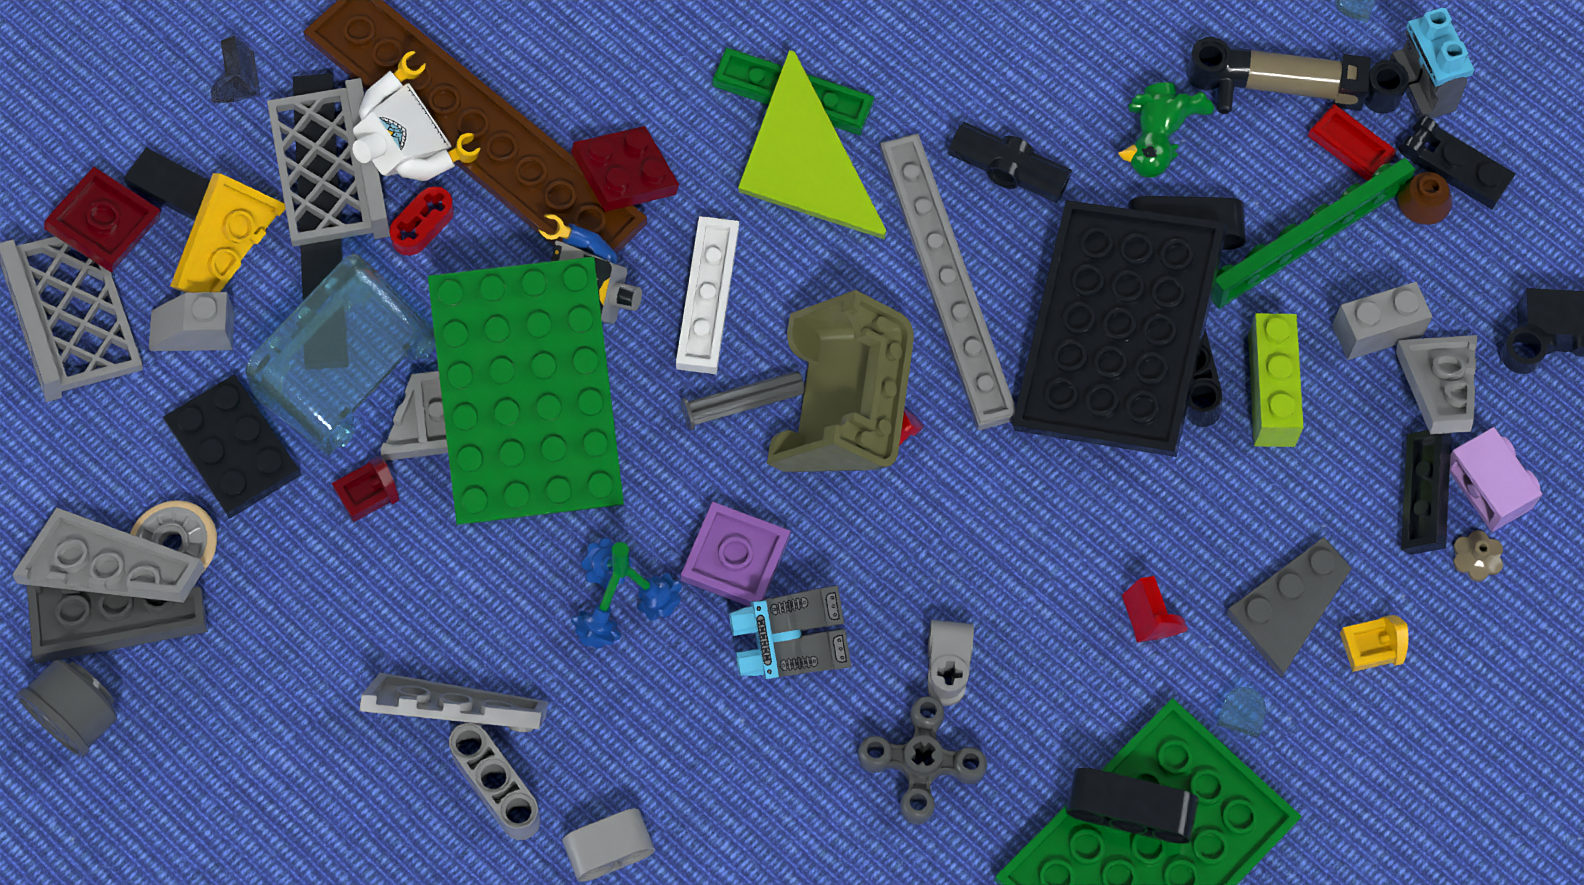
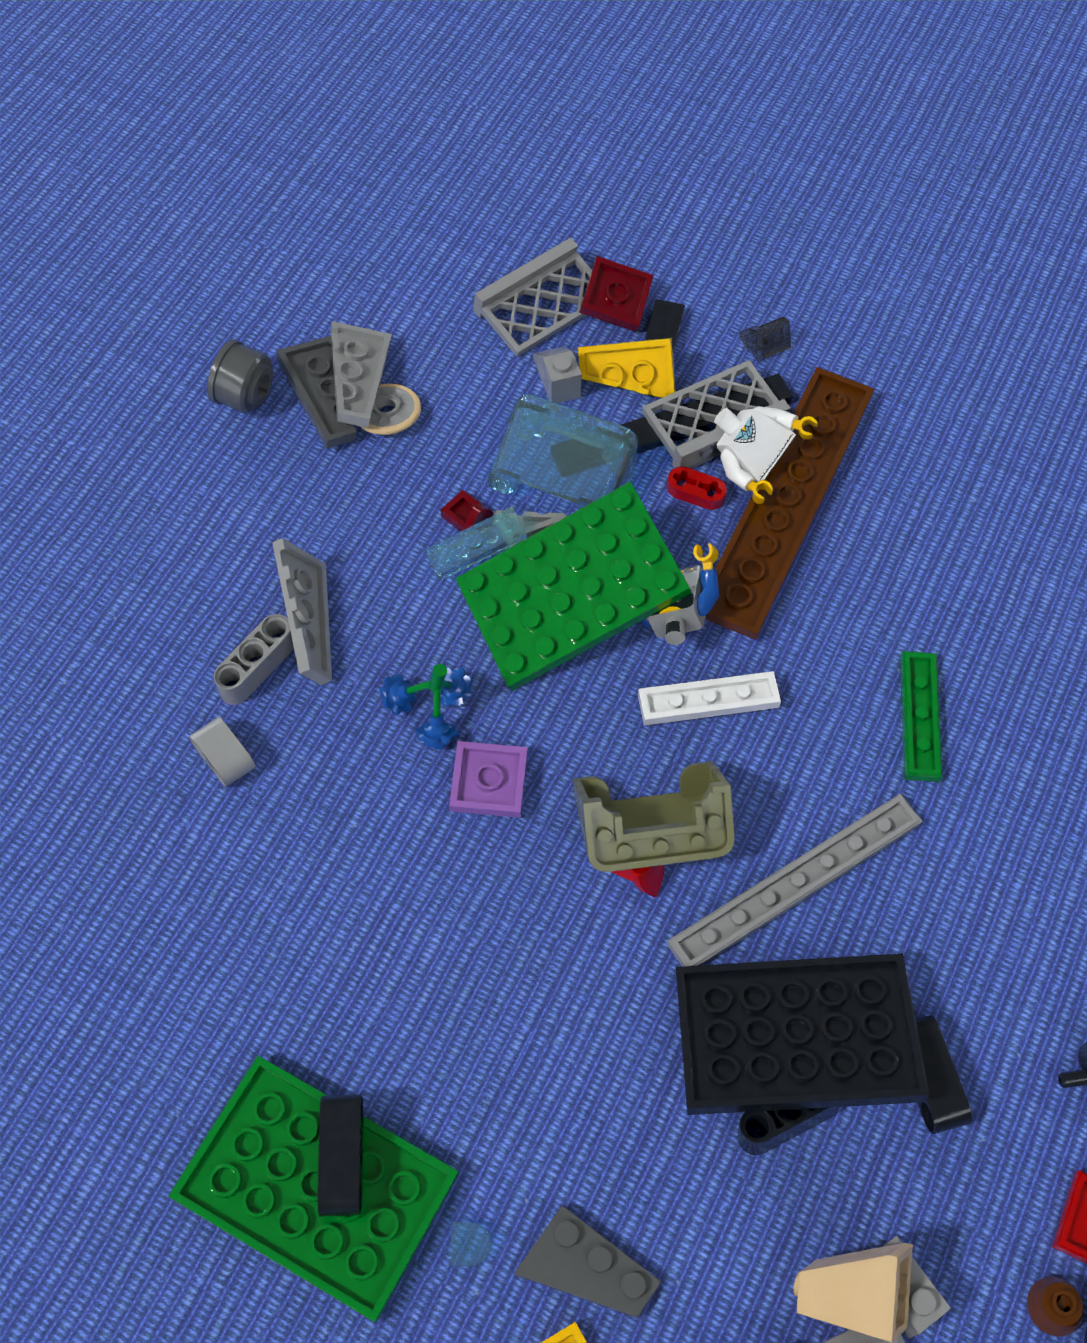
camera: 75 degrees right, 5 degrees down
(231, 446) = (470, 424): black plate -> none
(419, 486) = (476, 543): none -> clear light blue plate
(624, 168) = (793, 607): dark red plate -> none
(742, 398) = (627, 748): dark grey axle -> none
(779, 640) = (428, 836): hips -> none
(802, 160) = (859, 735): lime tile -> none
(921, 776) = (349, 982): dark grey gear -> none
(949, 655) = (449, 968): light grey piece -> none
(1010, 162) = (926, 903): black piece -> none
(1149, 612) = (533, 1131): red tile -> none
(1160, 117) = (1028, 1021): green animal -> none
(1275, 380) = (802, 1194): lime brick -> none
(1300, 239) = (981, 1204): green plate -> none
(1381, 355) = (859, 1290): none -> tan slope

